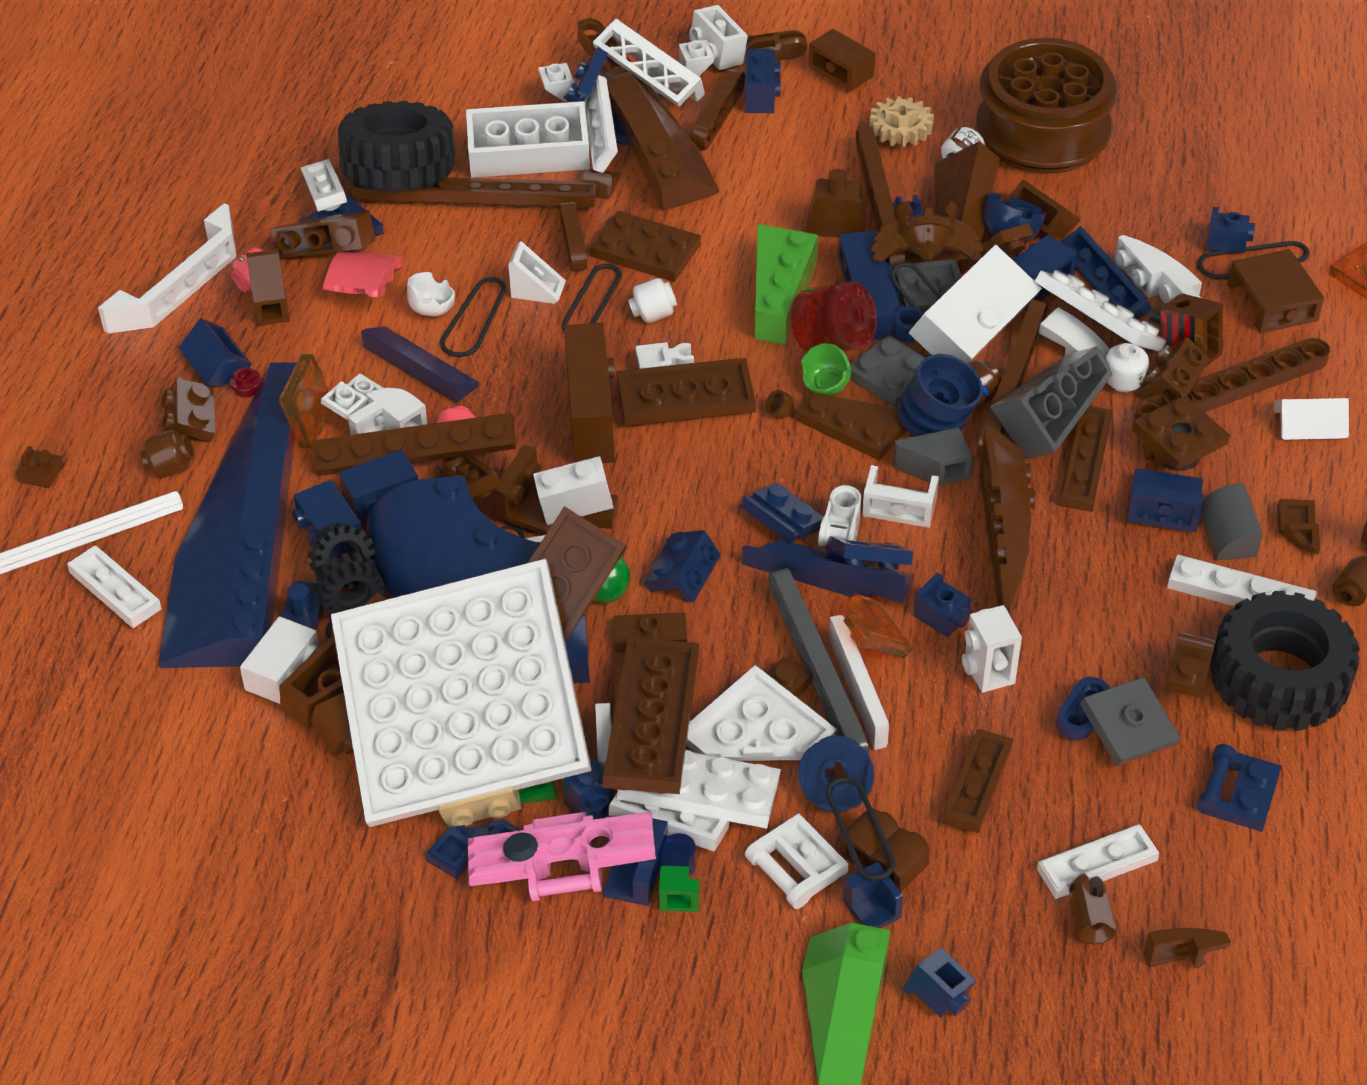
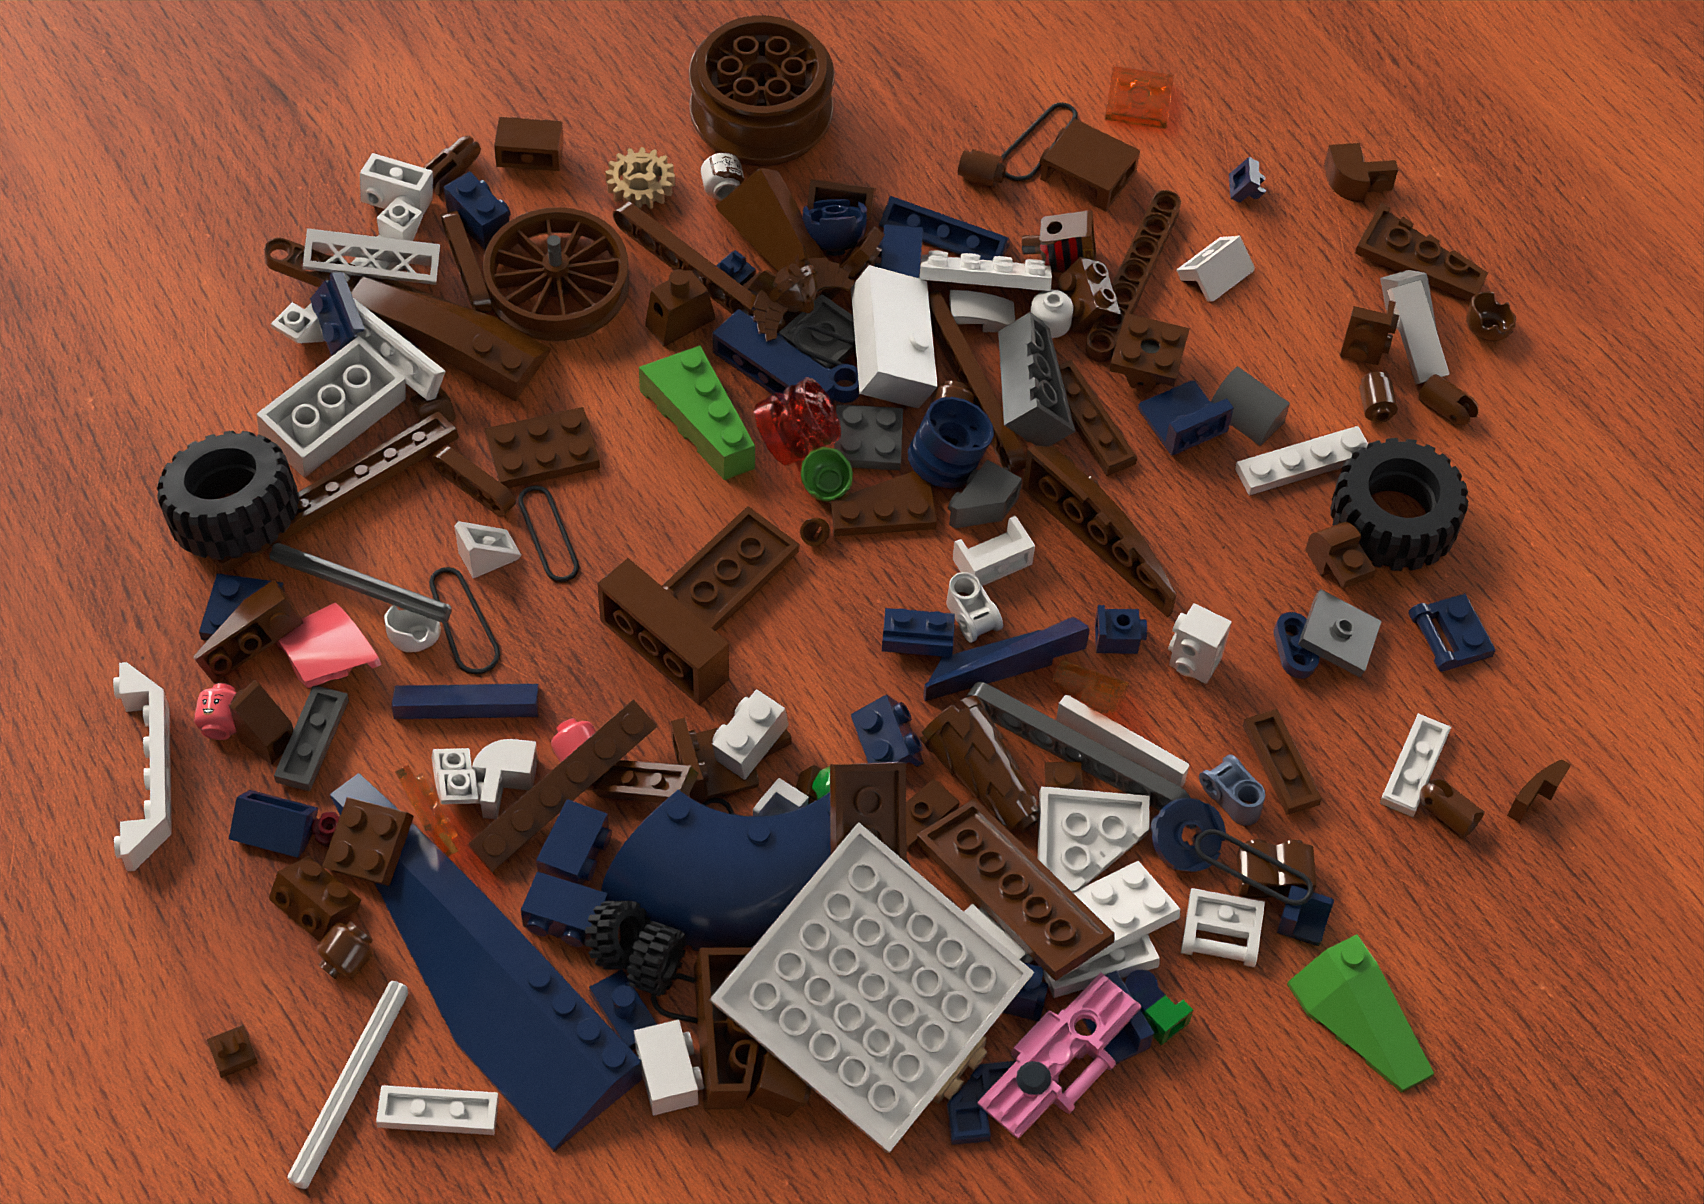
camera: 45 degrees left, 10 degrees up
(251, 397) = (368, 841): none -> reddish brown plate
(294, 321) = (311, 738): none -> dark grey plate
(324, 185) = (189, 579): white plate -> none
(426, 249) = (361, 583): none -> dark grey axle
(653, 300) = (612, 501): white head -> none
(660, 355) = (674, 554): white plate -> none
(728, 607) = (974, 751): none -> reddish brown cone
(771, 144) = (556, 273): none -> reddish brown wheel
(857, 552) = (1030, 623): dark blue plate -> none
(914, 775) = (1231, 785): none -> sand blue piece
(941, 983) = (1415, 947): dark blue brick -> none
(1155, 270) = (992, 204): white slope -> none
(1180, 246) = (982, 167): none -> reddish brown brick
(1229, 231) = (1006, 128): dark blue brick -> none
(1298, 523) = (1290, 373): reddish brown slope -> none

